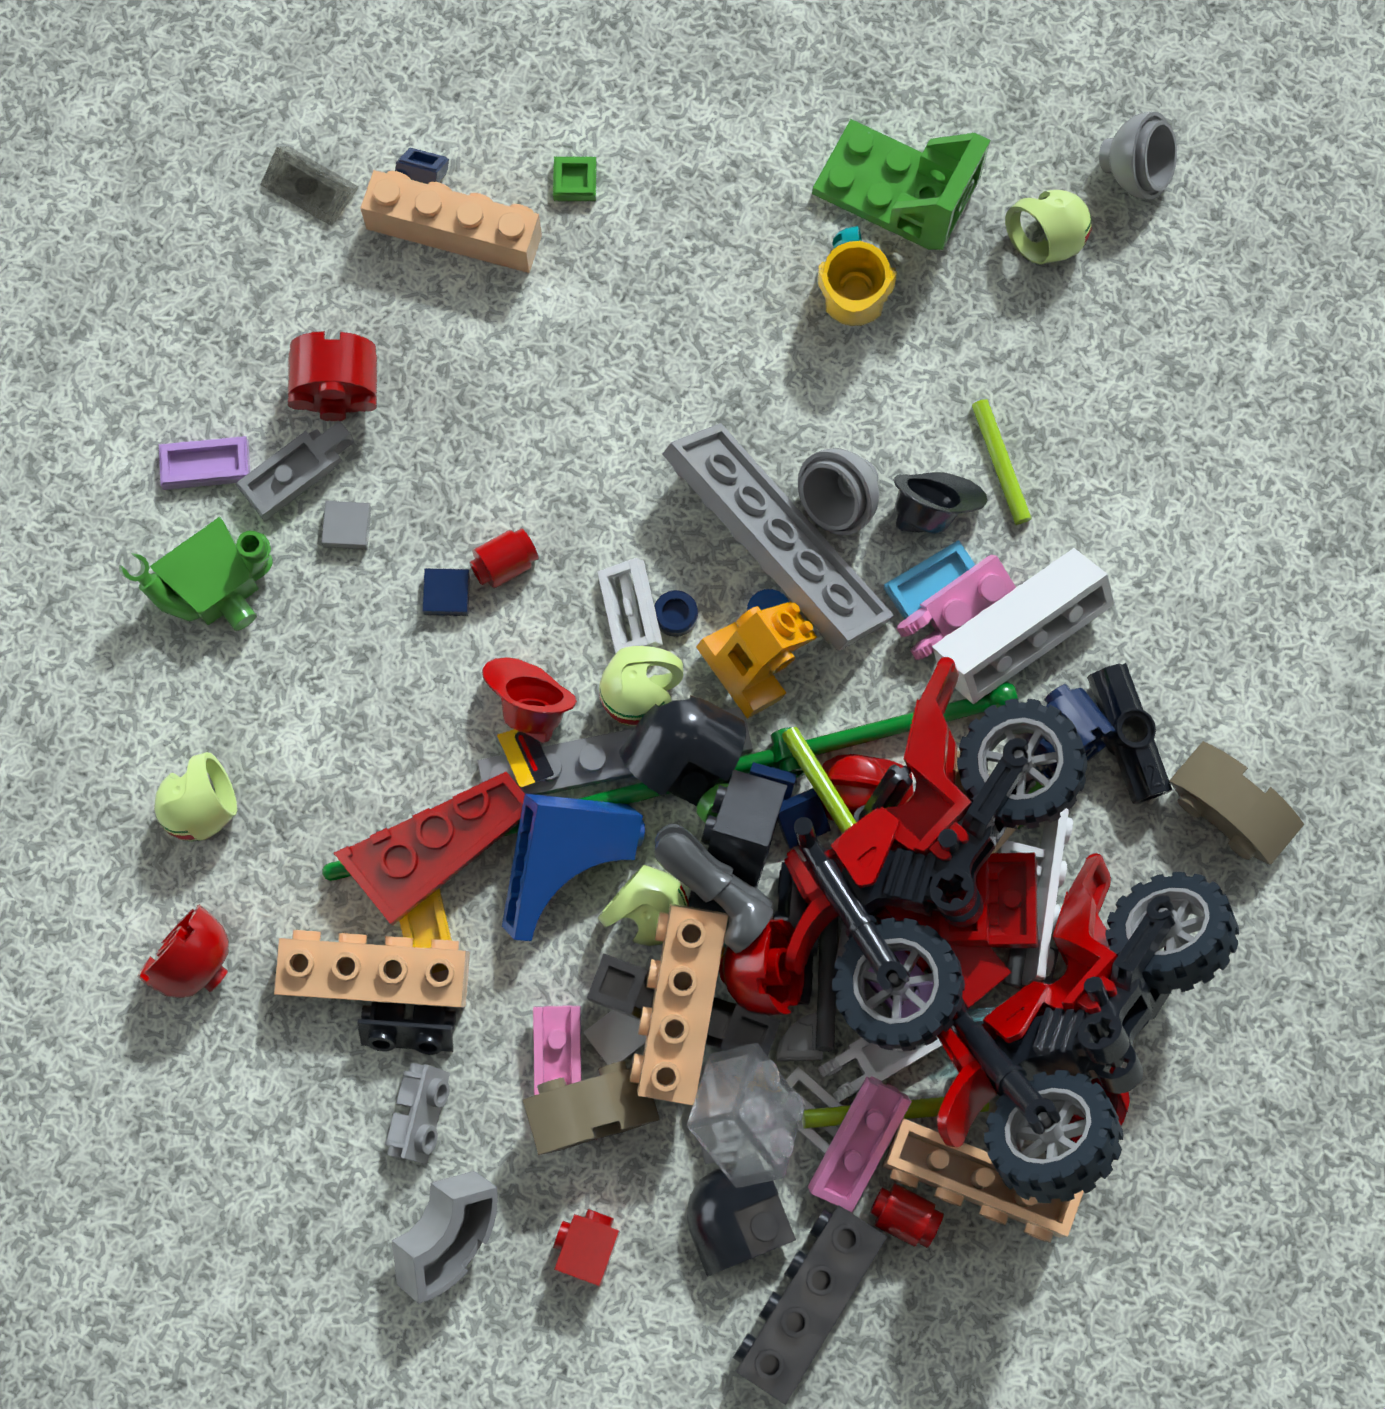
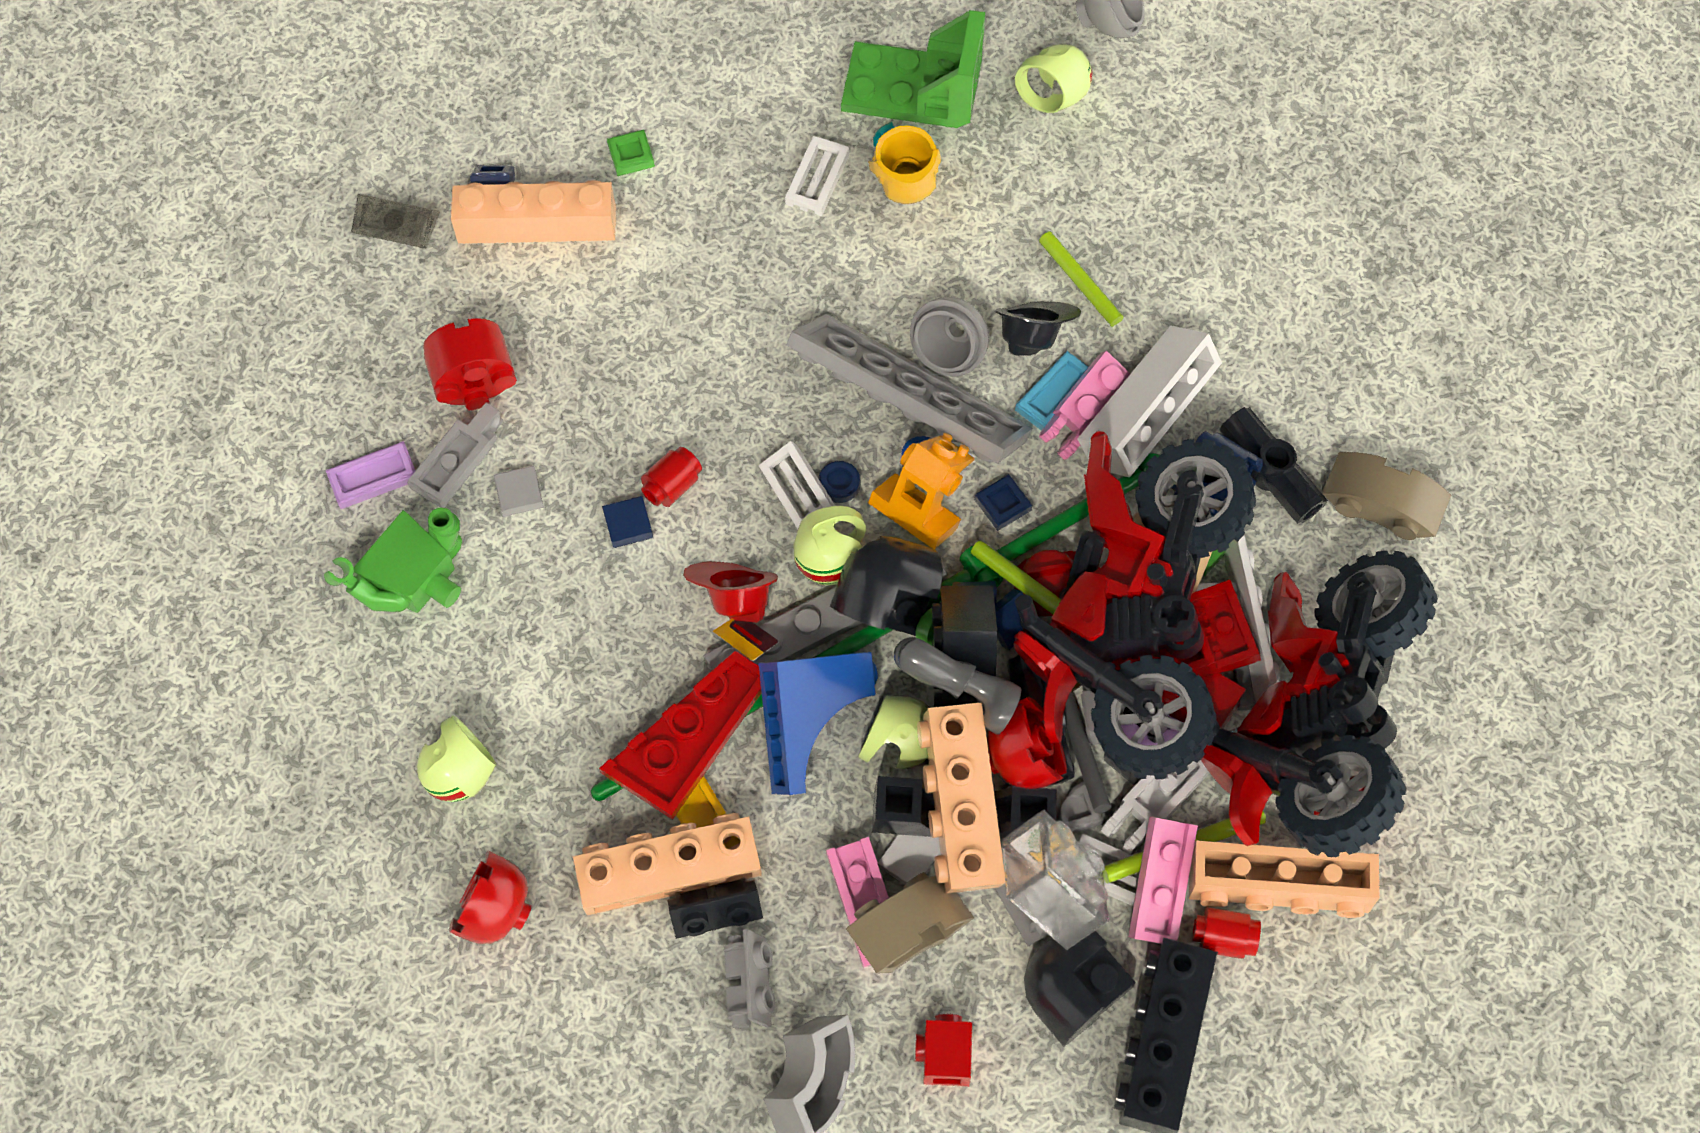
camera: 15 degrees left, 10 degrees down
(741, 290) = (807, 202): none -> white tile
(836, 686) = (1003, 502): none -> dark blue tile

